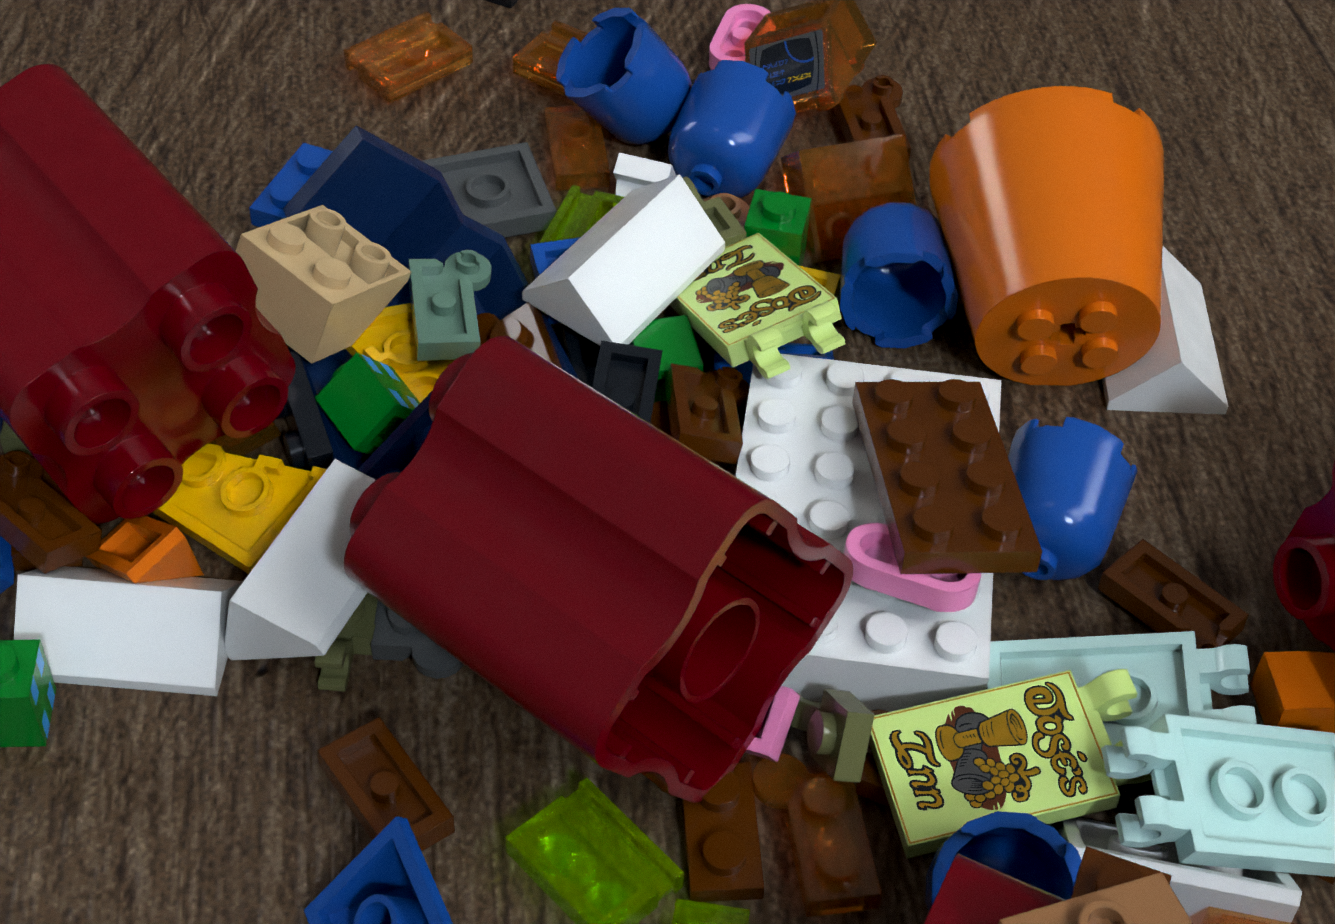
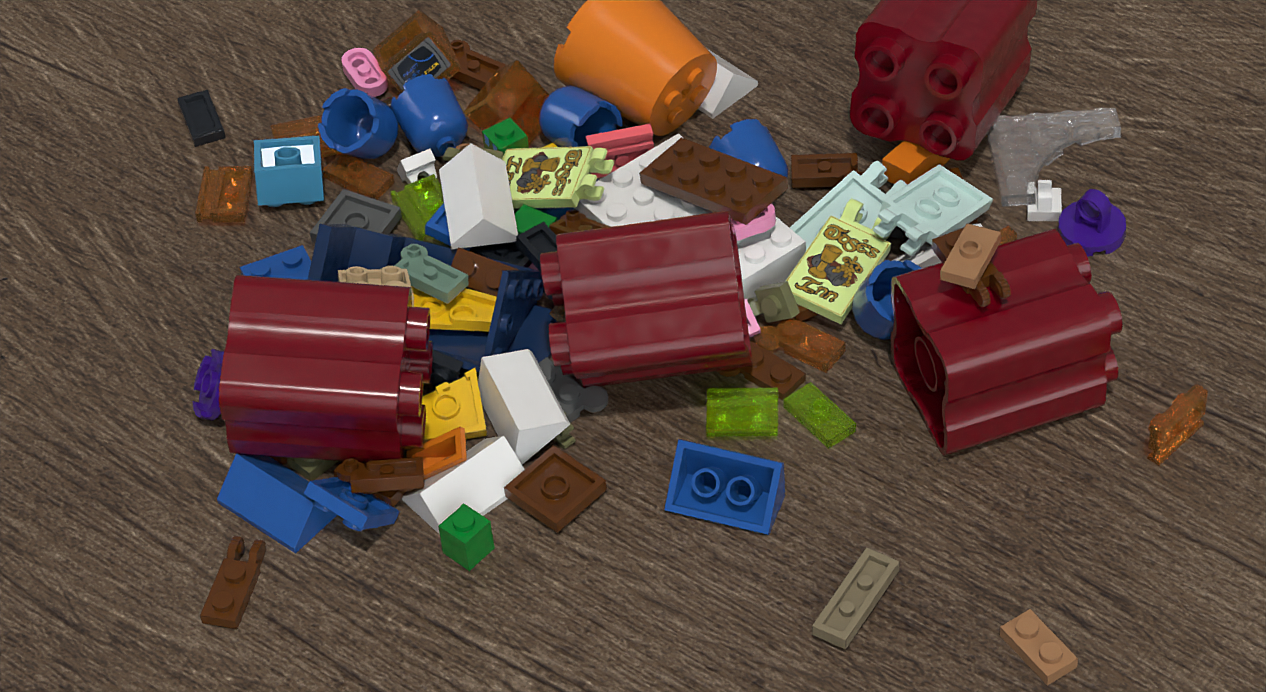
camera: 40 degrees left, 0 degrees up
(210, 735) = (555, 488): none -> reddish brown plate
(366, 402) = (454, 334): green brick -> none
(384, 783) = (640, 452): reddish brown plate -> none
(492, 77) = (288, 171): none -> dark azure slope
(902, 337) = (623, 144): none -> coral plate

